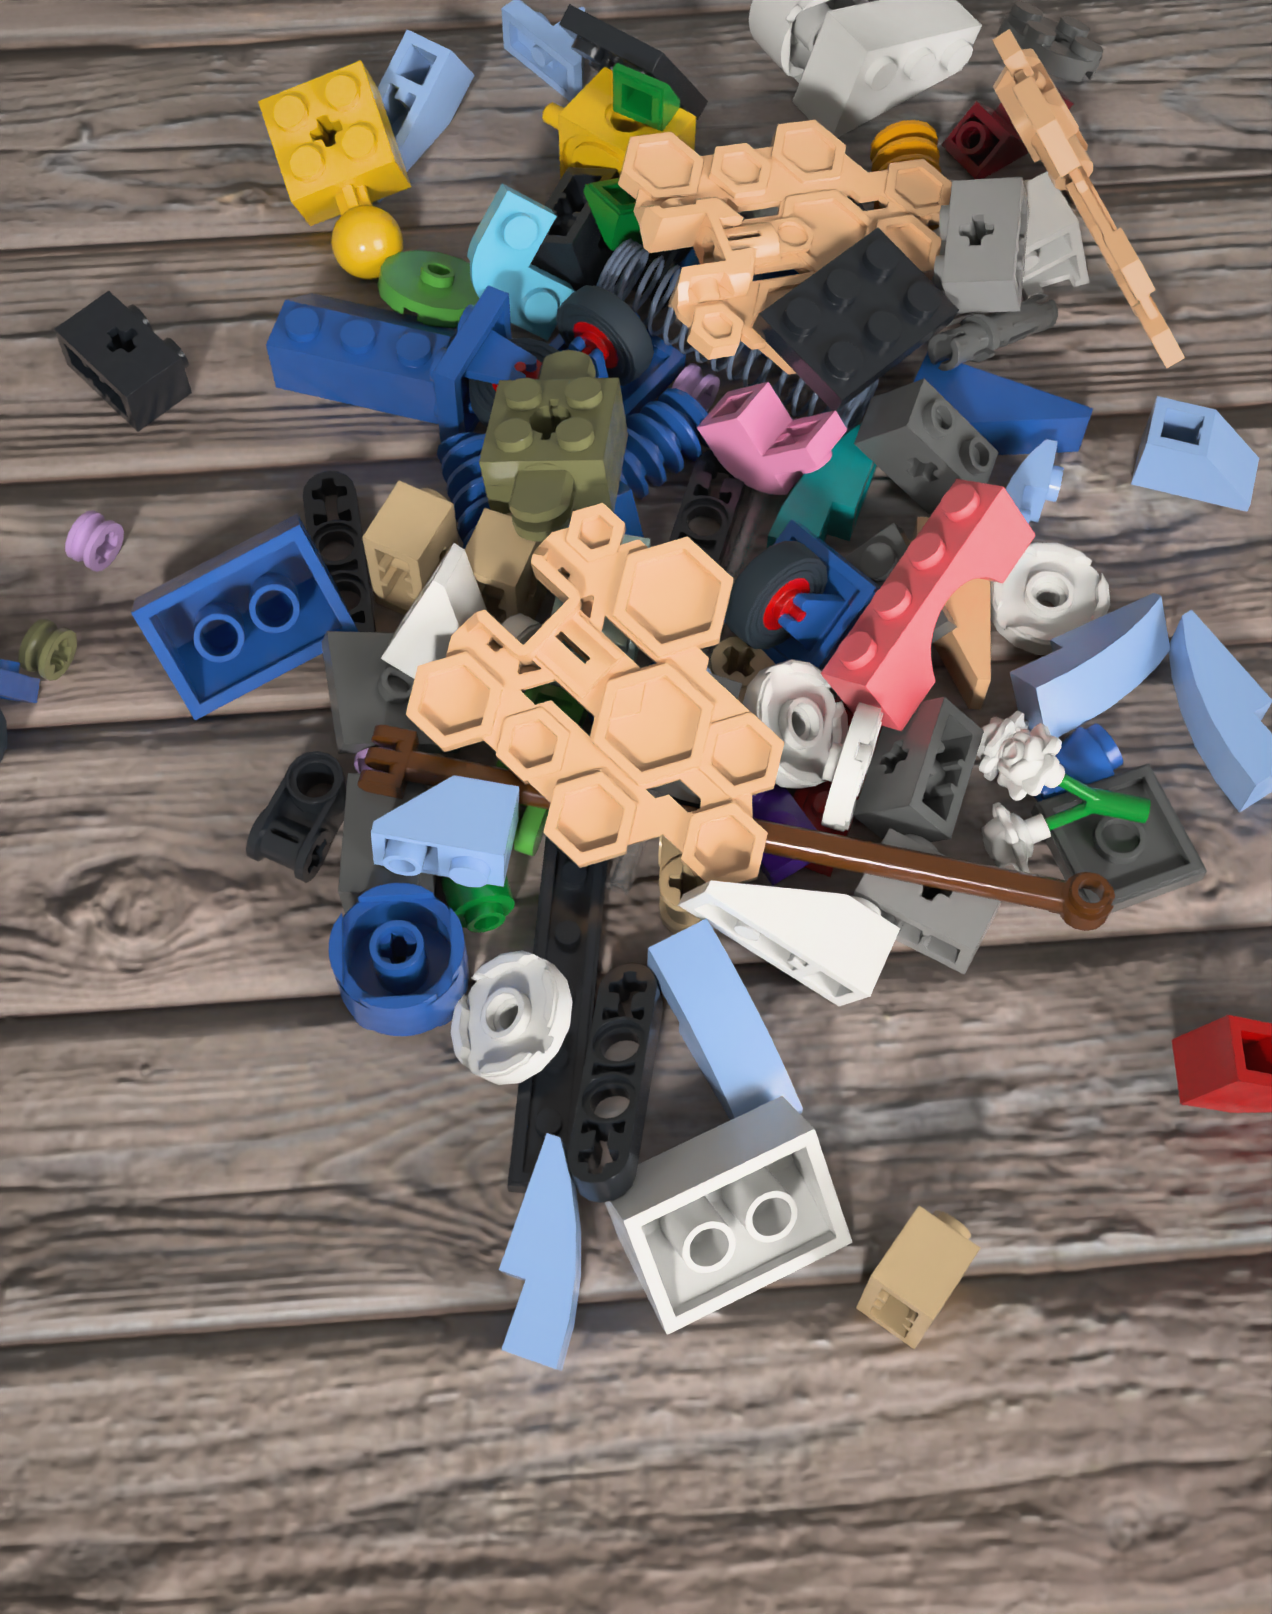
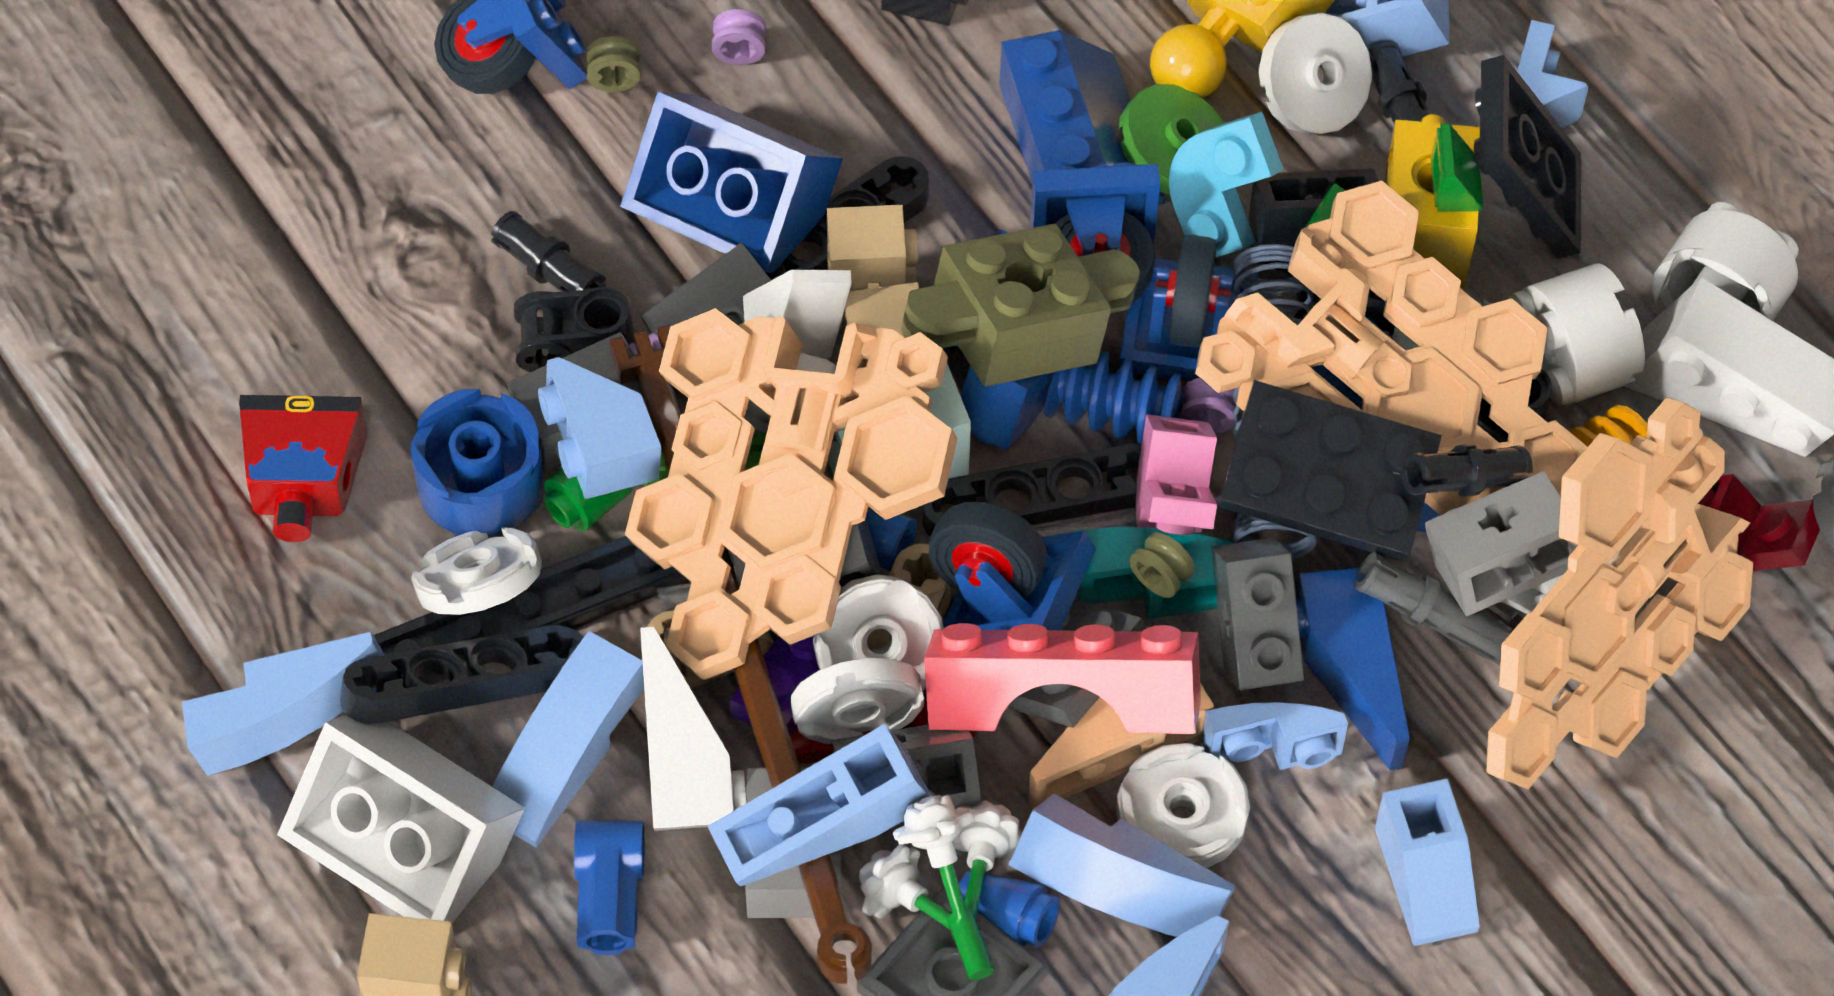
camera: 60 degrees right, 5 degrees down
(211, 802) = (545, 257): none -> black pin
(283, 1117) = (300, 457): none -> red torso
(444, 164) = (1291, 77): none -> white plate
(497, 131) = (1399, 93): none -> black pin
(800, 92) = (1588, 337): none -> white brick
(854, 483) = (1162, 565): none -> olive bush
(868, 1055) = (608, 868): none -> blue piece
(921, 227) = (1465, 469): none -> black pin
(965, 839) = (821, 808): none -> light blue slope

